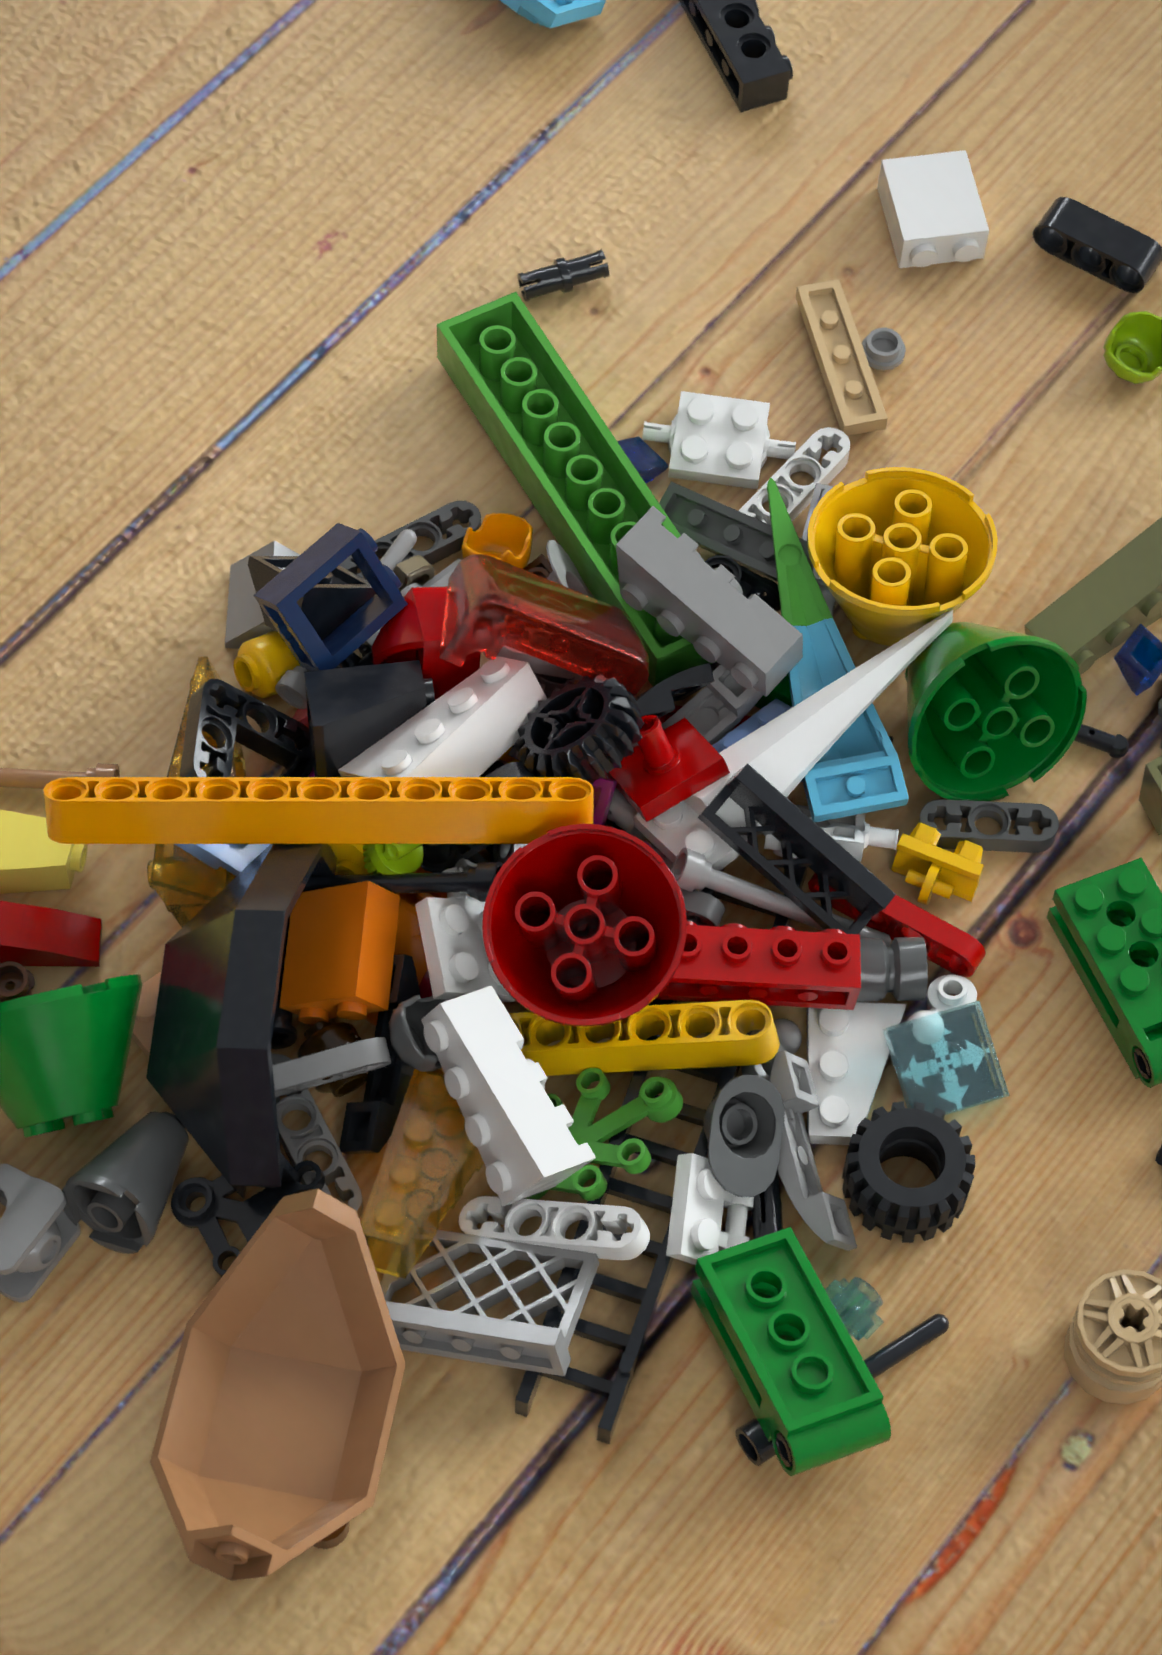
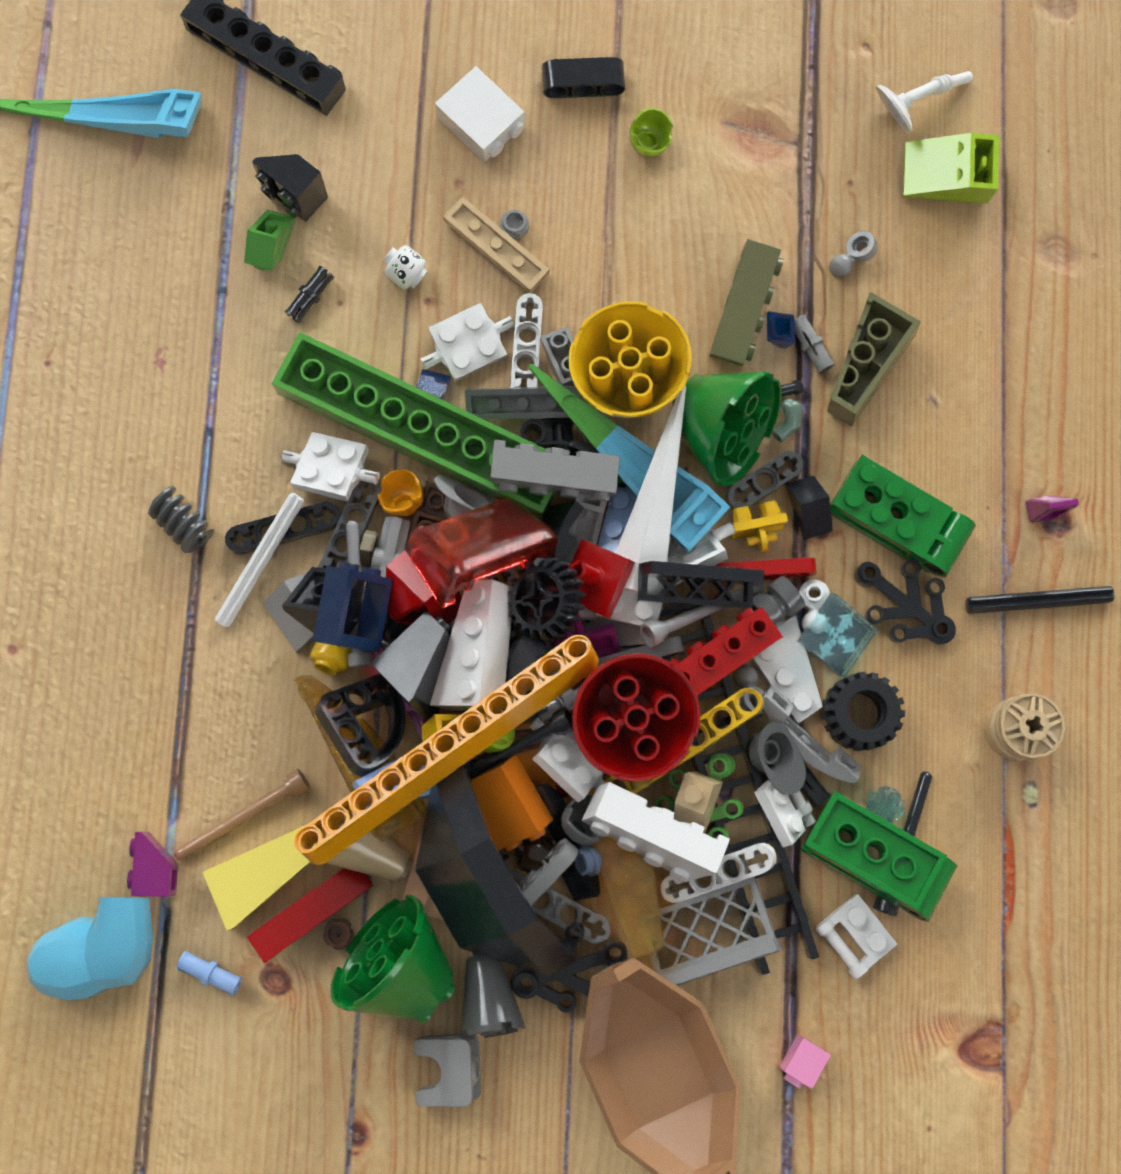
camera: 40 degrees left, 20 degrees up
(121, 903) = (375, 858): none -> tan cone
(207, 412) = (178, 522): none -> dark grey piece
(265, 509) = (259, 560): none -> white axle
(327, 493) = (257, 525): none -> black beam
(393, 1086) = (588, 861): none -> sand blue plate
(435, 465) = (330, 466): none -> white plate
(486, 1555) = (804, 1062): none -> bright pink brick
(559, 189) = (268, 240): none -> bright green slope
(598, 1105) = (696, 798): none -> tan slope
(637, 143) = (291, 182): none -> black slope
(702, 1452) = (863, 929): none -> white plate
(704, 312) = (404, 267): none -> white head
(1026, 896) = (810, 507): none -> black slope
(1074, 1094) = (909, 604): none -> black plant
(1080, 779) = (793, 415): none -> sand green arm

